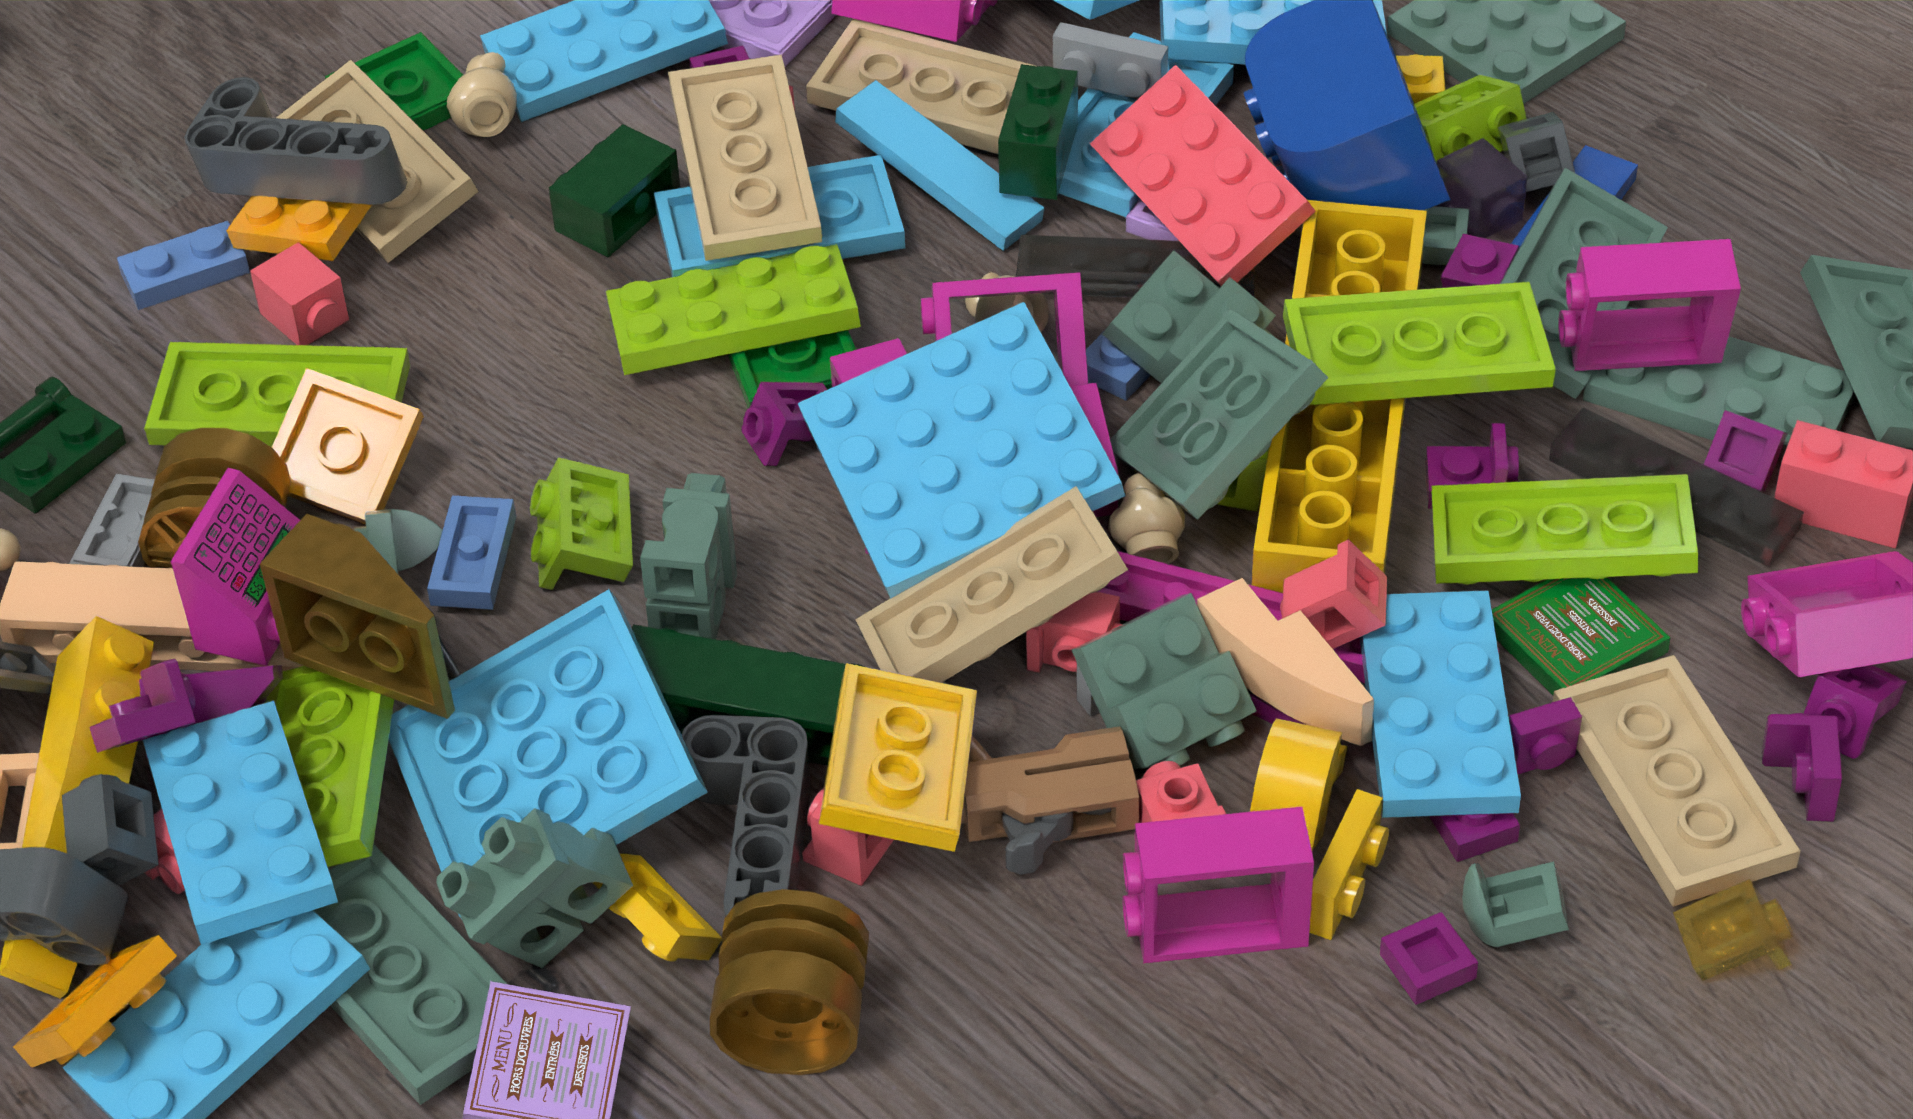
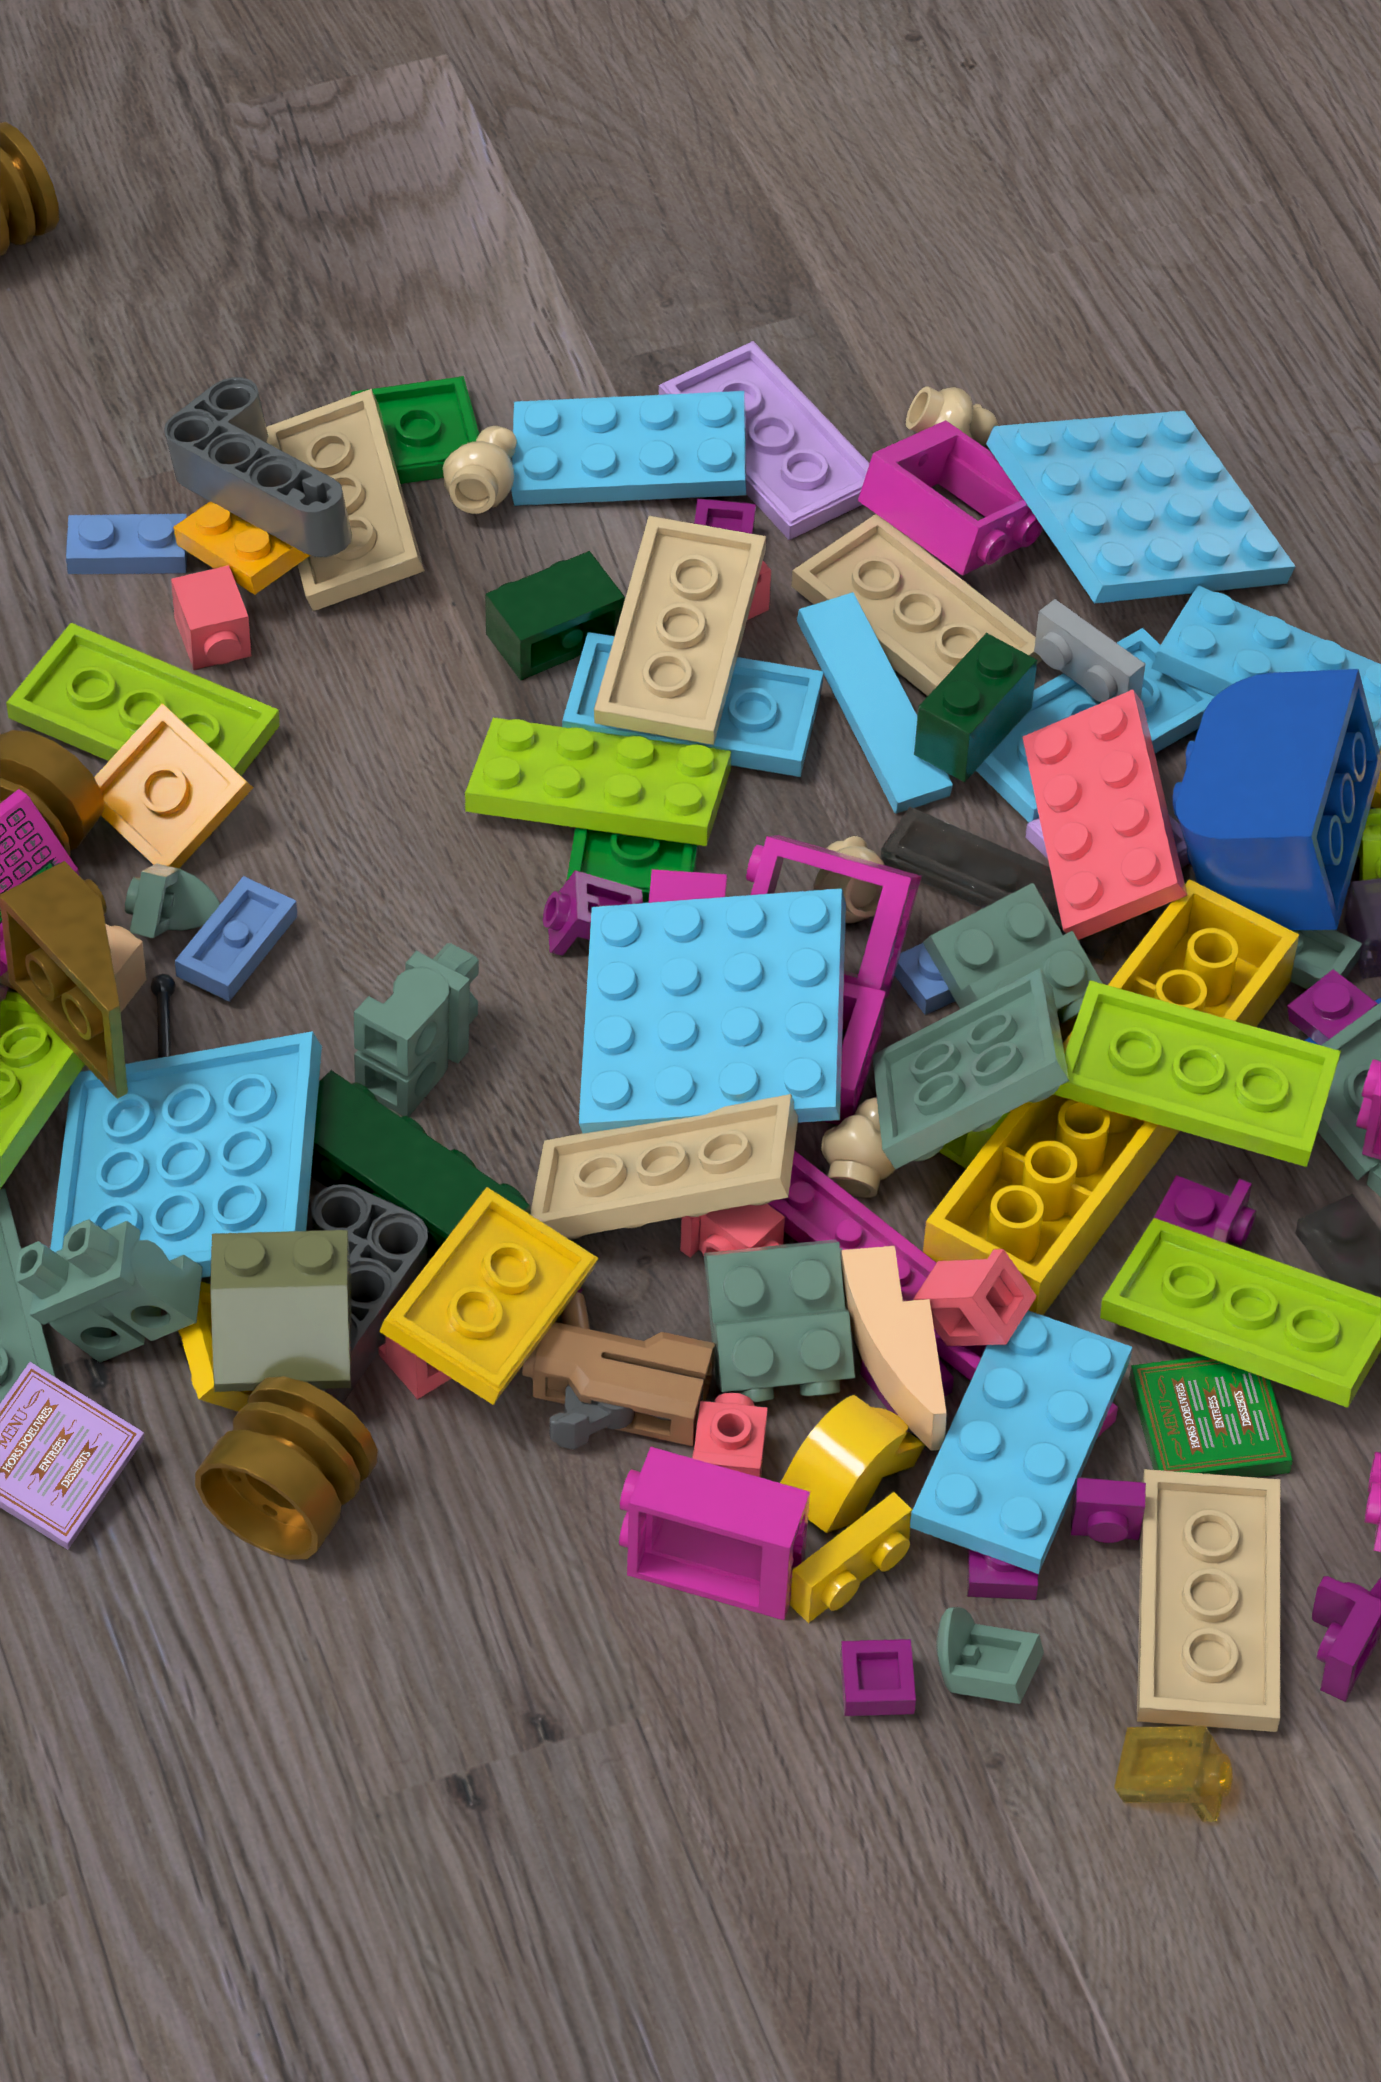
camera: 20 degrees right, 5 degrees up
(582, 522) = (350, 947): lime bracket -> none
(711, 838) = (281, 1308): none -> olive slope

